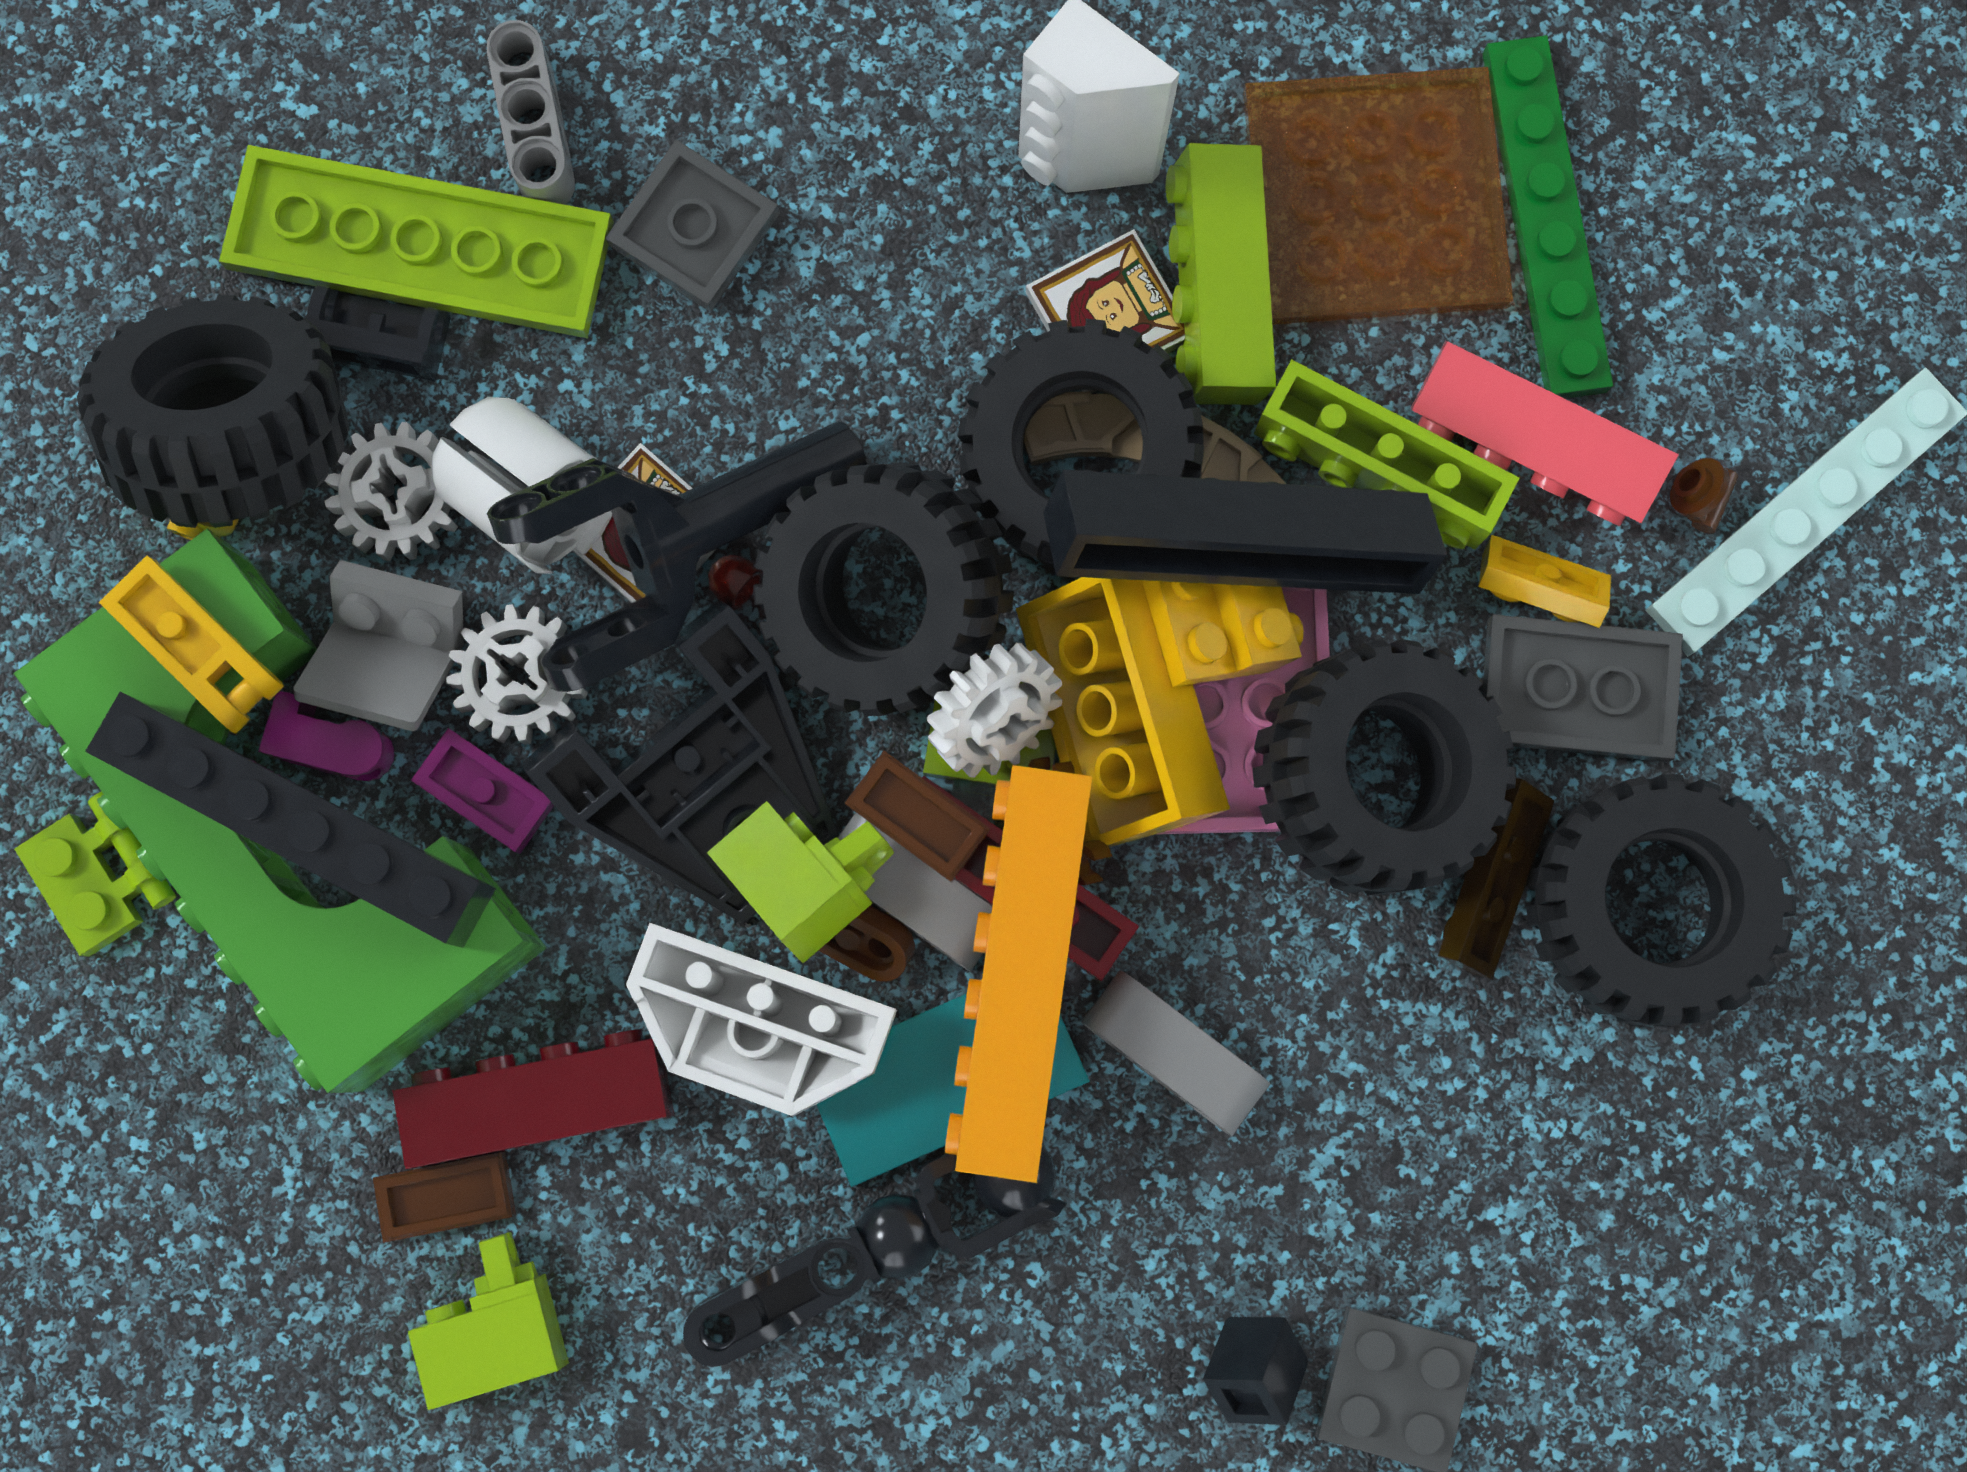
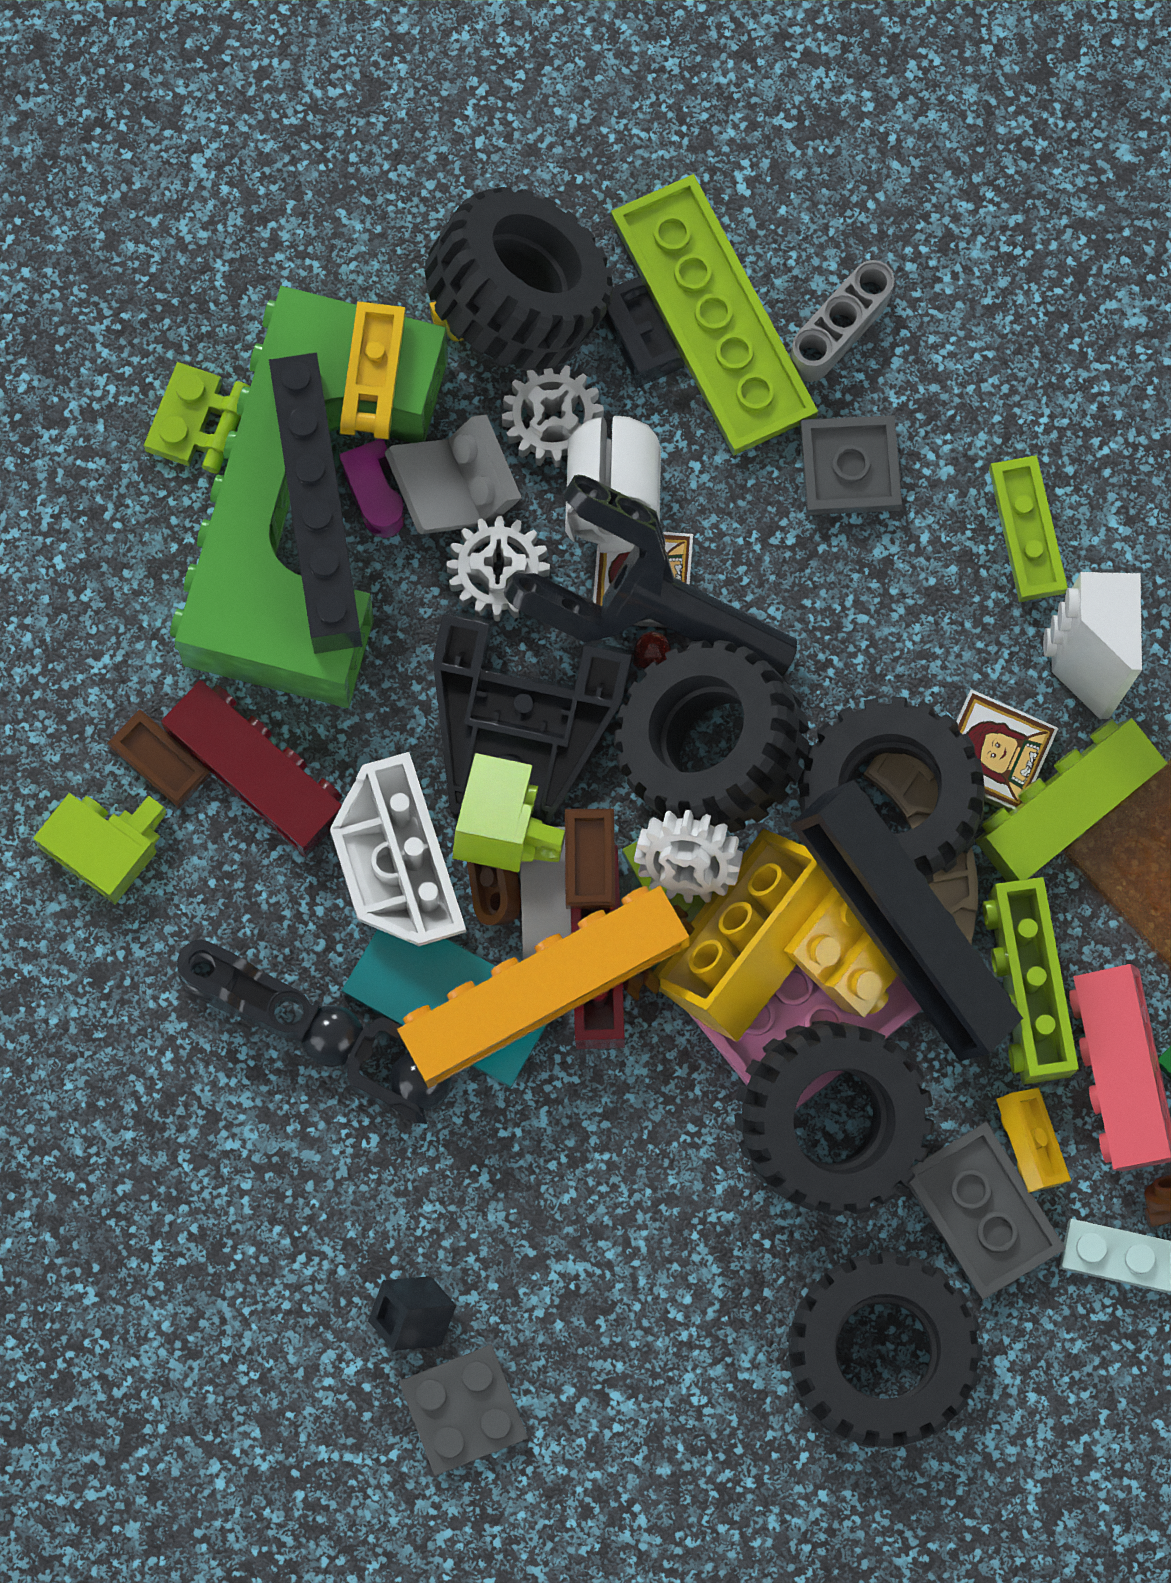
camera: 50 degrees right, 5 degrees down
(483, 791) = (413, 600): magenta plate -> none
(901, 98) = (1028, 528): none -> lime plate
(1175, 1053) = (567, 1125): light grey beam -> none
(1495, 885) = (822, 1243): dark brown plate -> none

